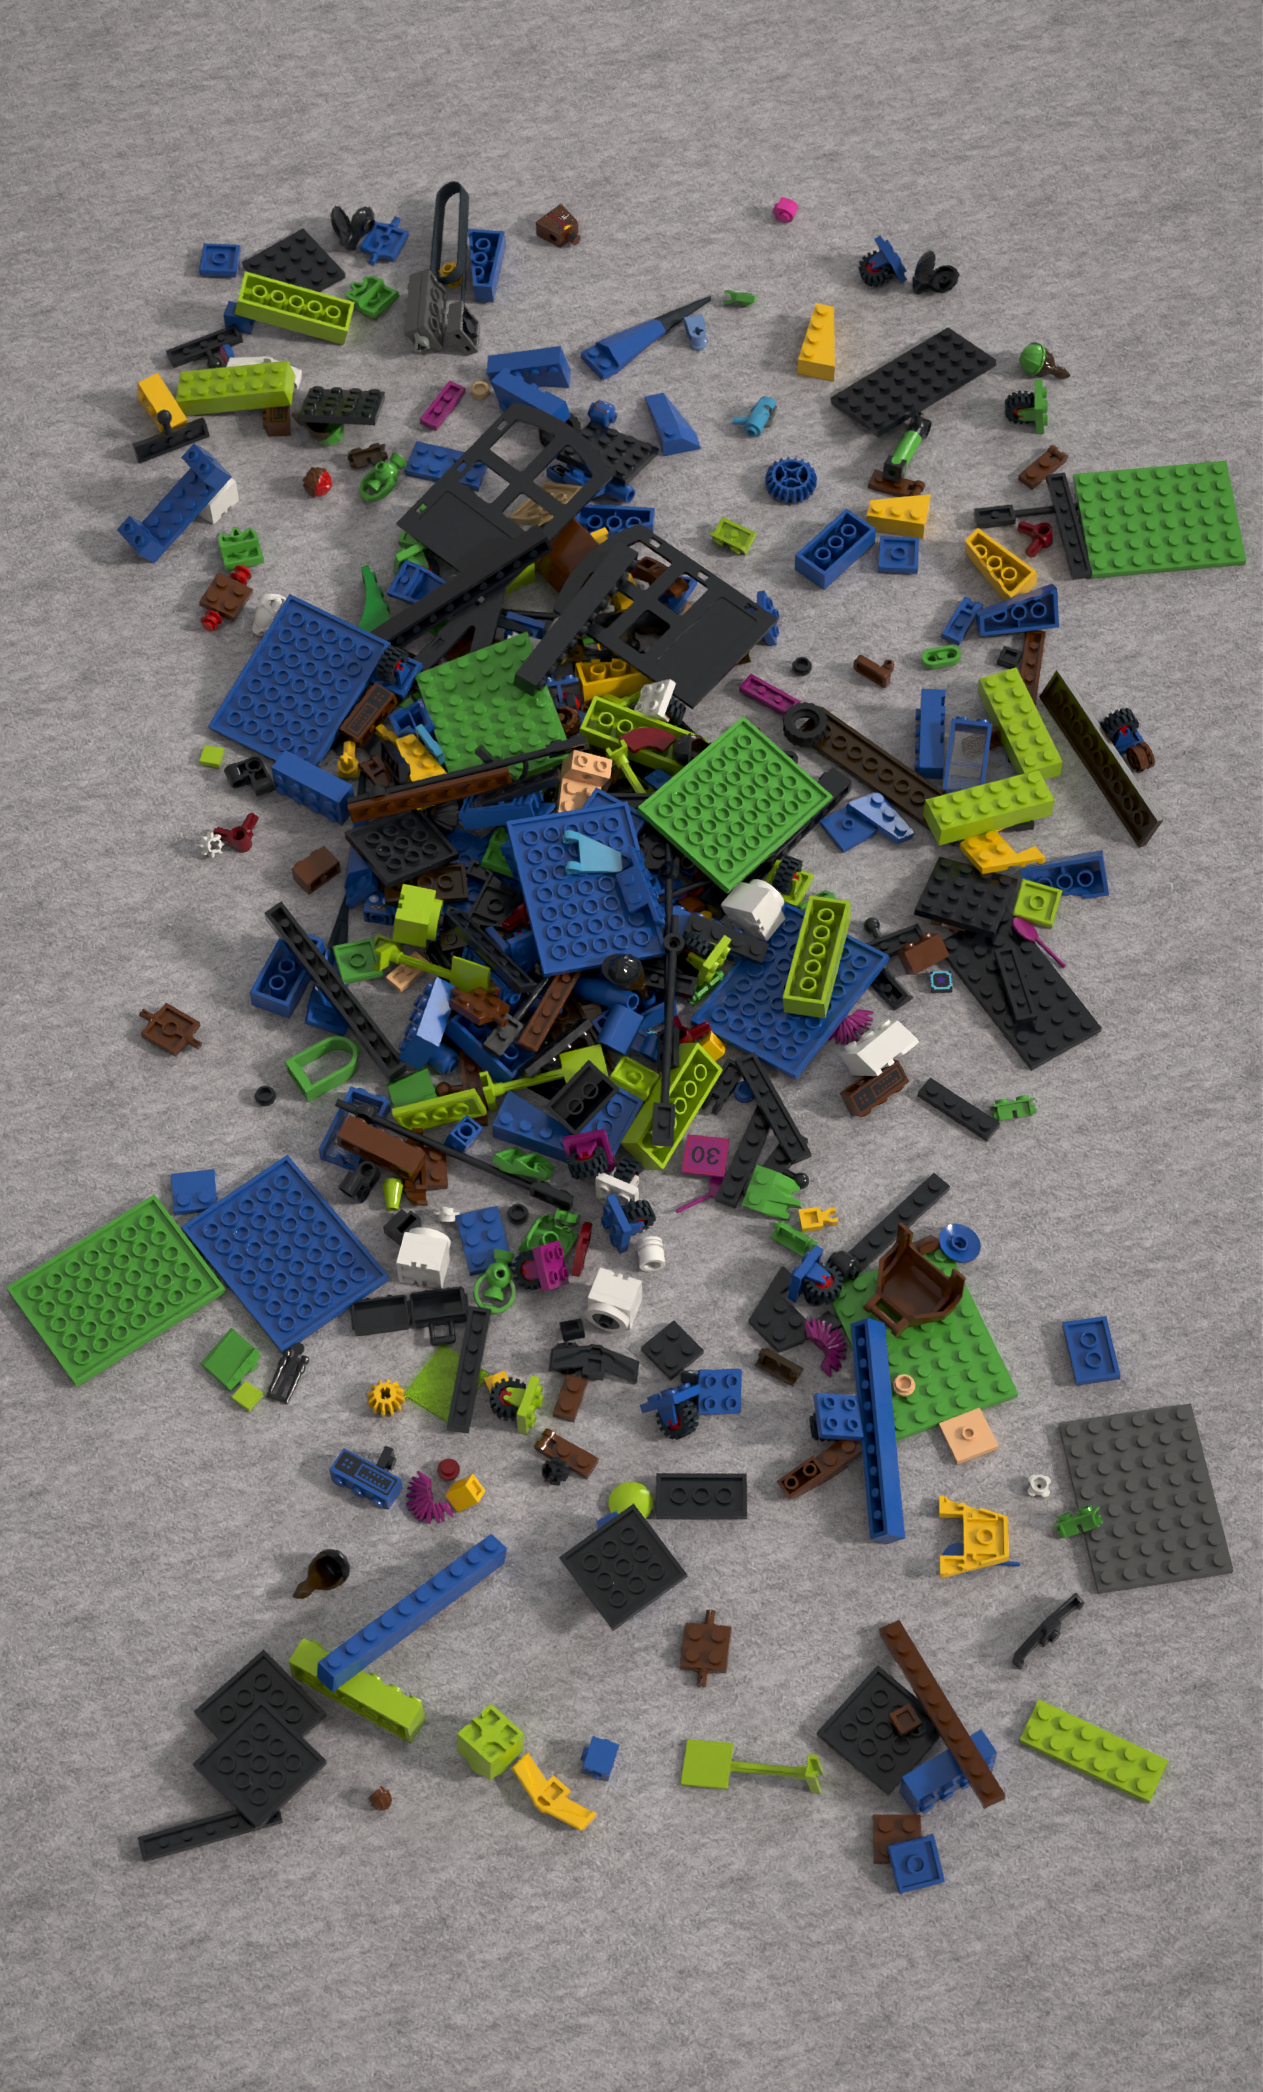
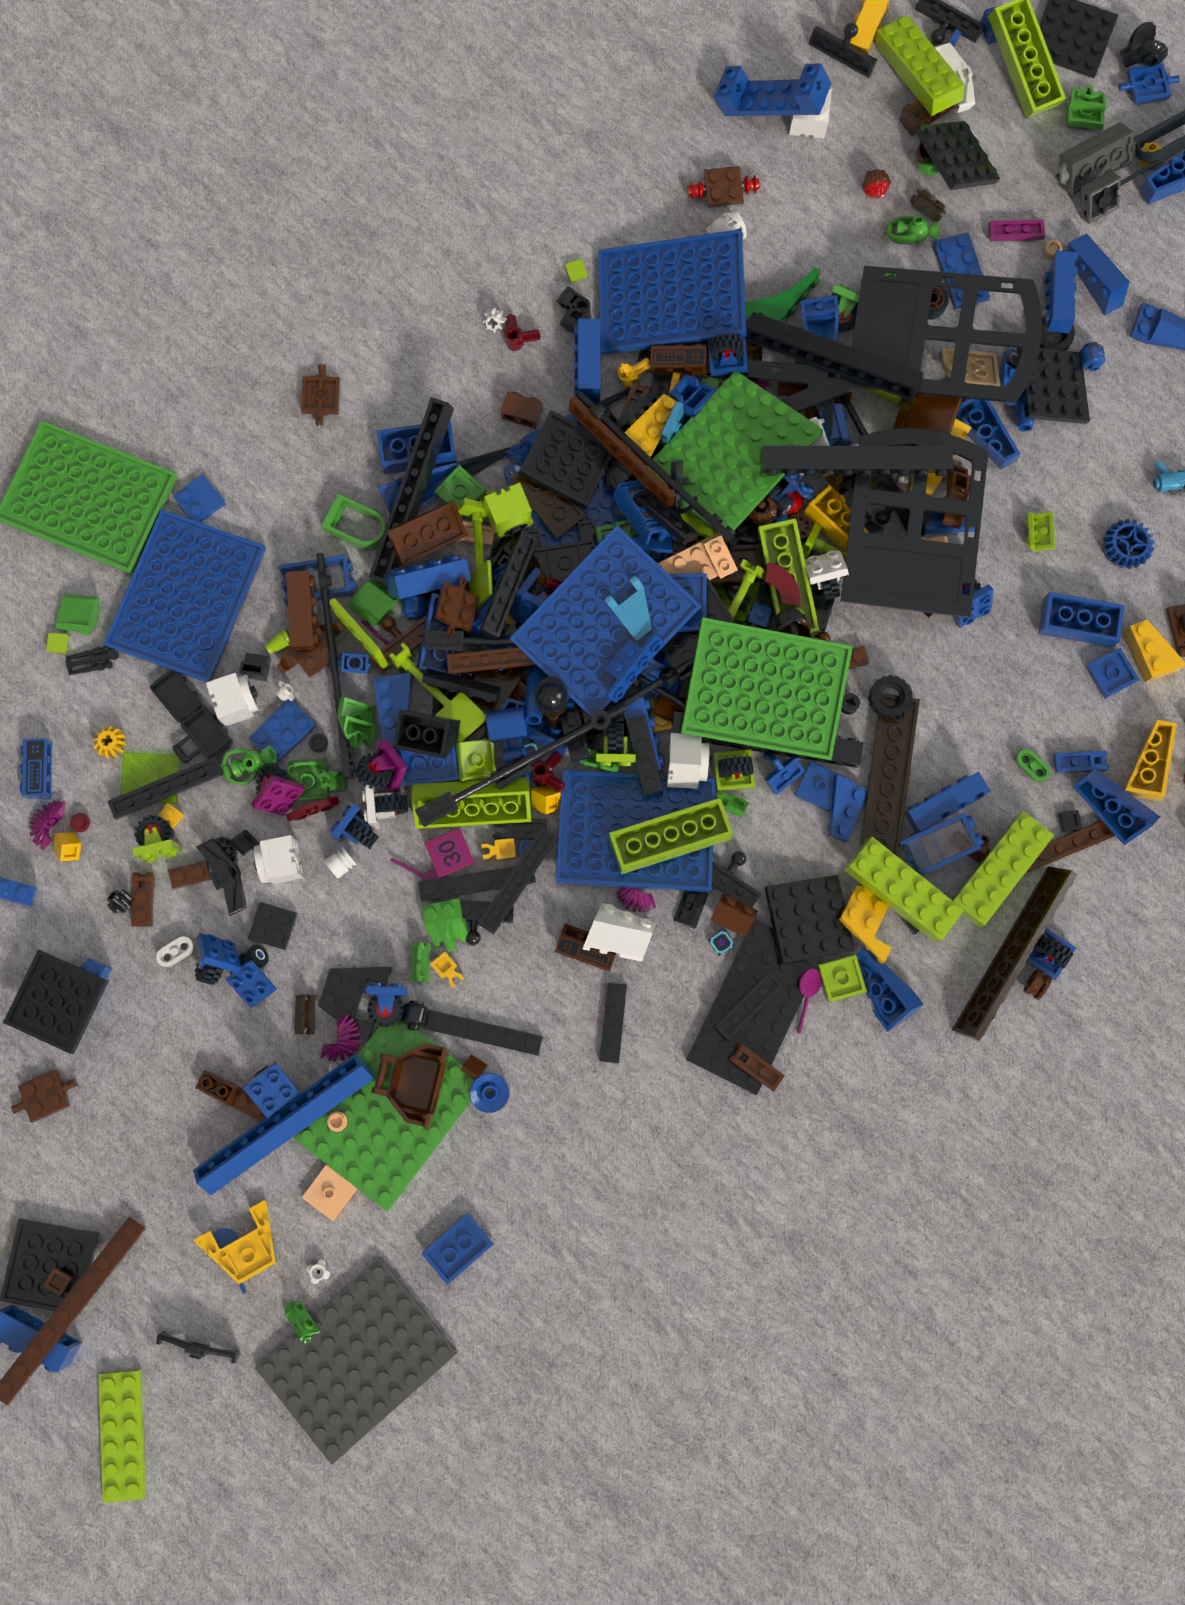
camera: 55 degrees right, 20 degrees up
(240, 548) = (775, 168): bright green plate -> none
(265, 1096) = (307, 498): black plate -> none
(357, 1185) = (267, 612): black piece -> none
(385, 999) = (427, 533): none -> reddish brown plate
(387, 1459) = (58, 774): black plate -> none
(629, 1493) = (129, 971): lime dish -> none
(640, 1450) = (176, 951): none -> white plate
(670, 426) = (1118, 418): blue wedge -> none
(701, 1495) = (162, 1020): black plate -> none
(730, 1112) = (502, 849): none -> yellow plate
(767, 694) = (904, 651): magenta plate -> none
(801, 666) = (950, 660): black plate -> none
(818, 847) = (784, 773): none -> blue plate
(873, 671) = (983, 728): reddish brown piece -> none
(1004, 1109) = (634, 1058): bright green hinge -> none
(1076, 1008) = (757, 1067): none -> reddish brown plate

